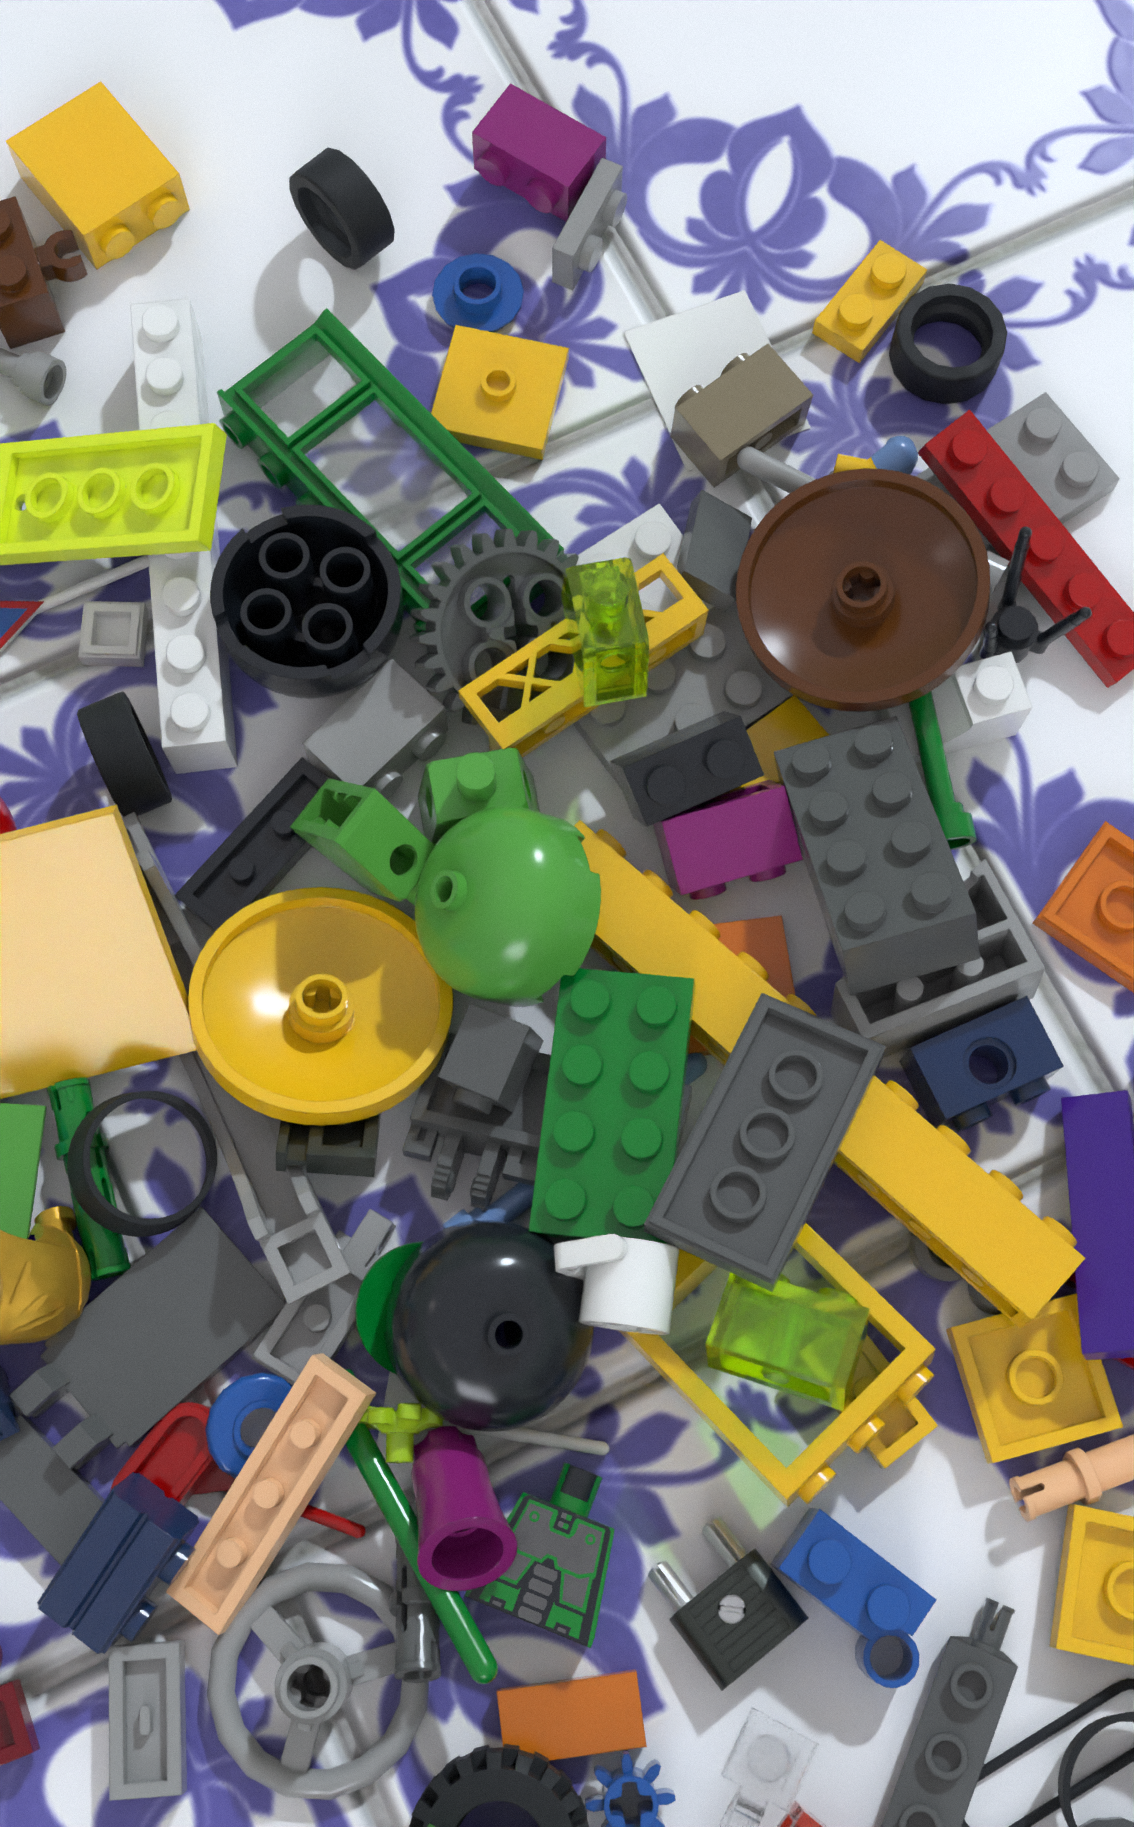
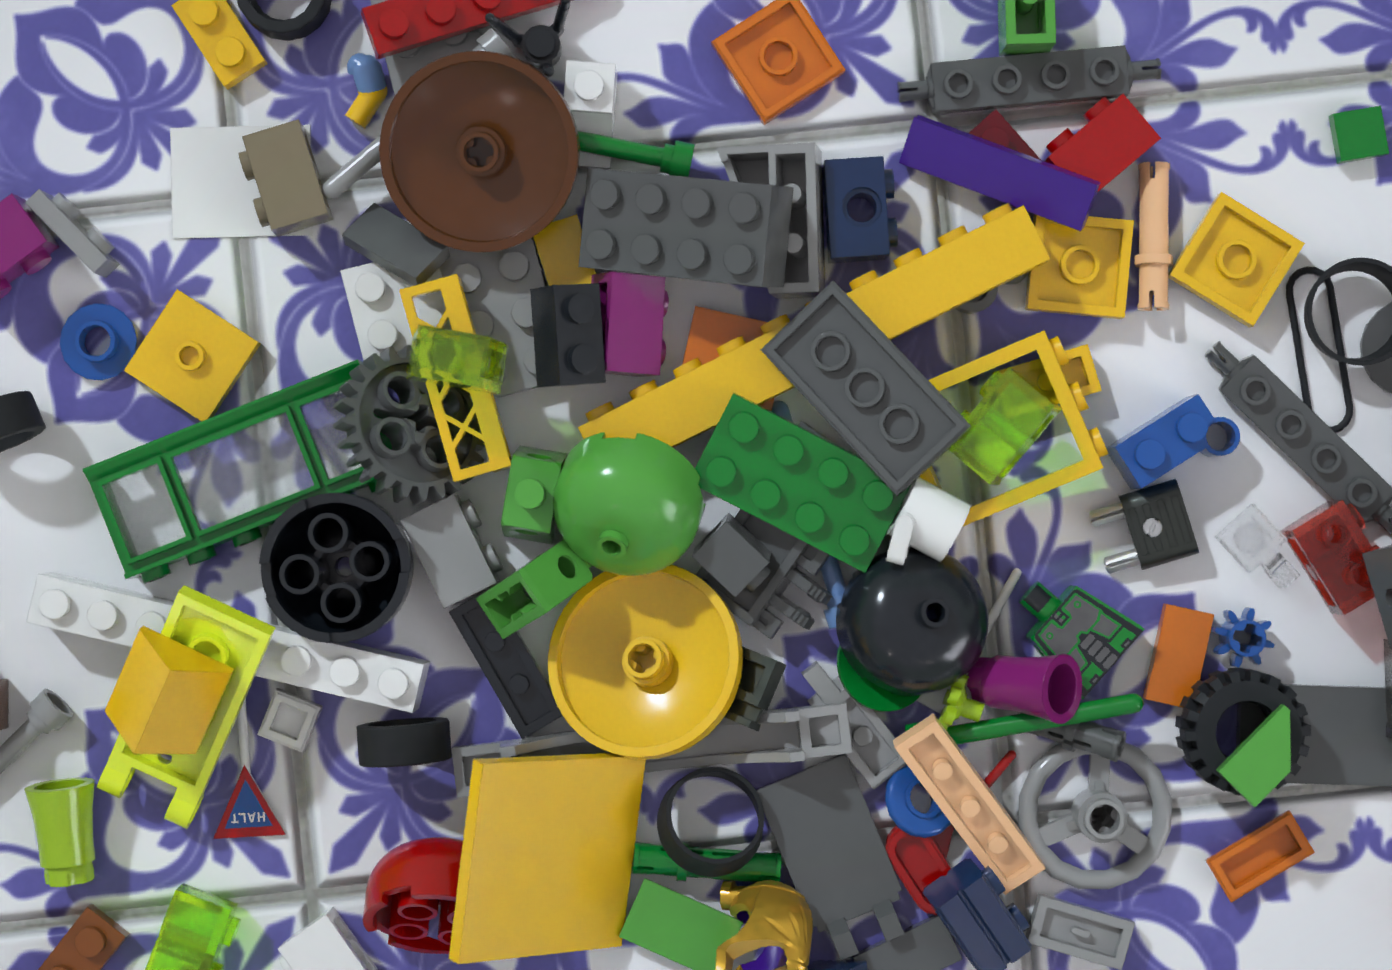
camera: 65 degrees left, 15 degrees up
(88, 463) = (166, 695): none -> yellow slope

